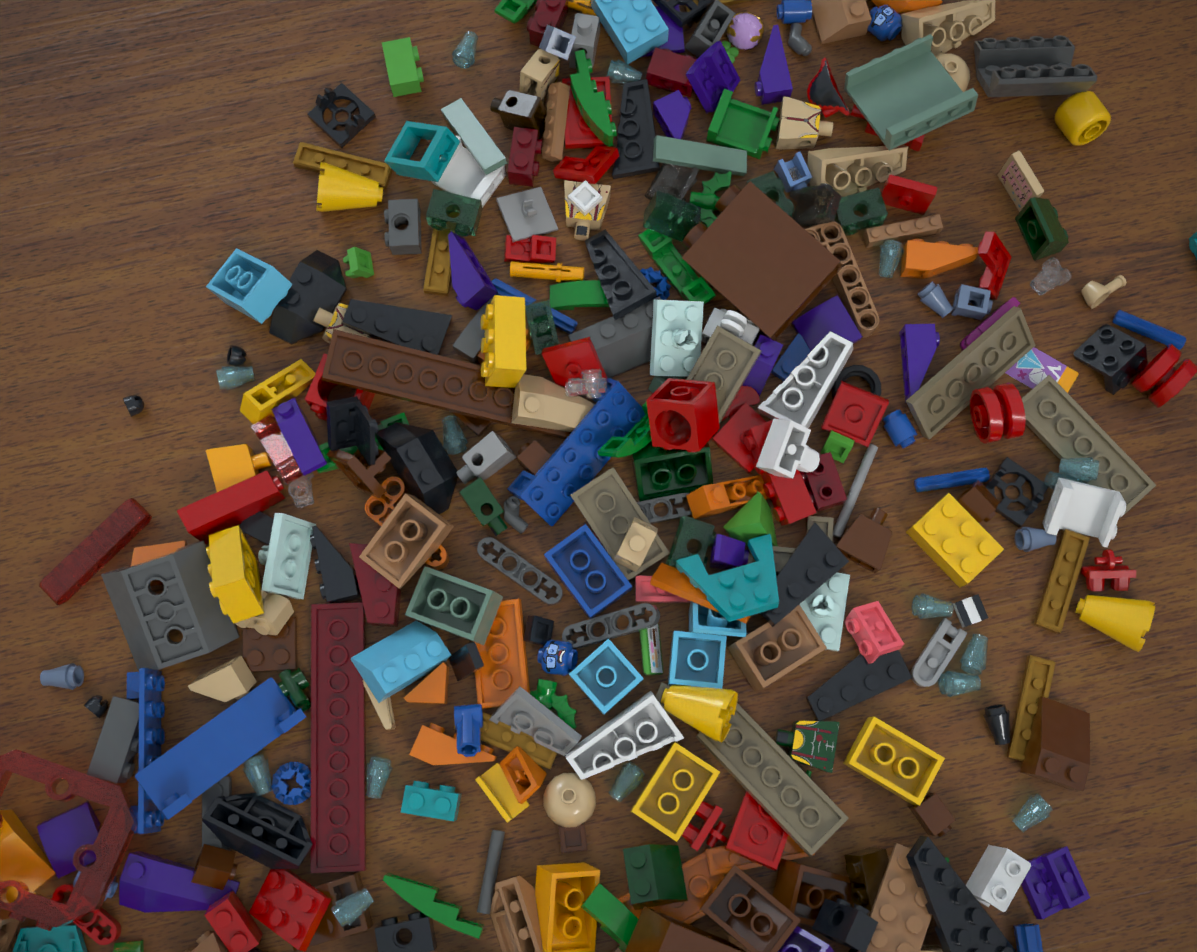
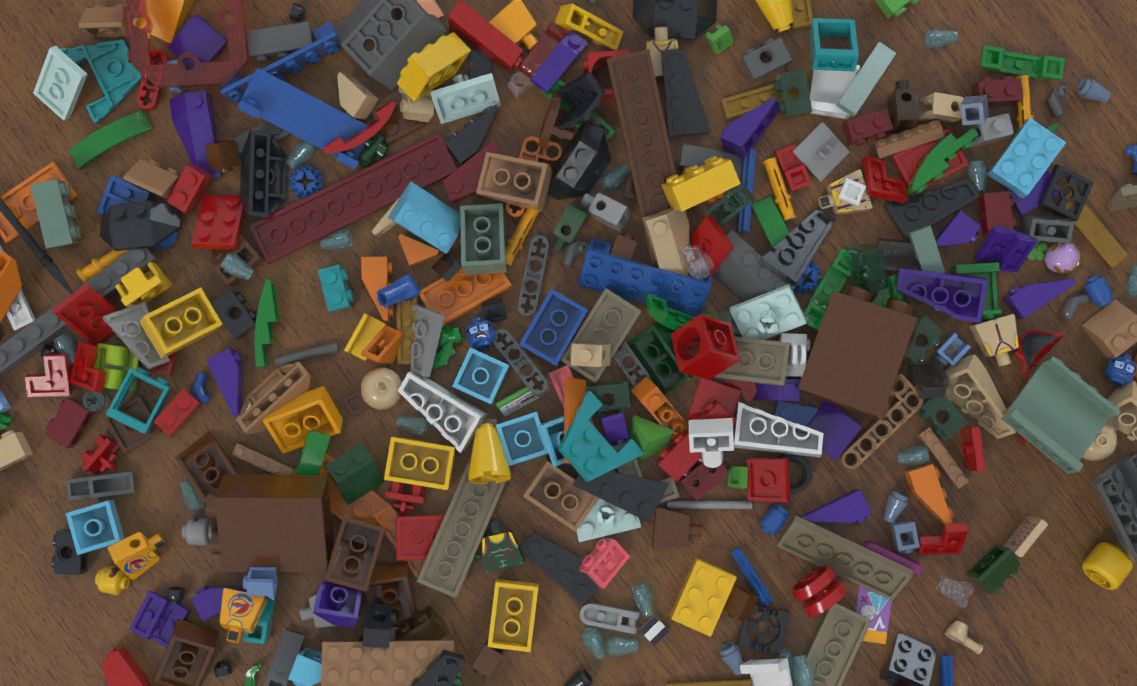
camera: 70 degrees right, 10 degrees up
(260, 655) = (339, 145): none -> red slope
(465, 563) = (522, 229): none -> light orange pin
(735, 147) = (952, 293): none -> dark purple wedge

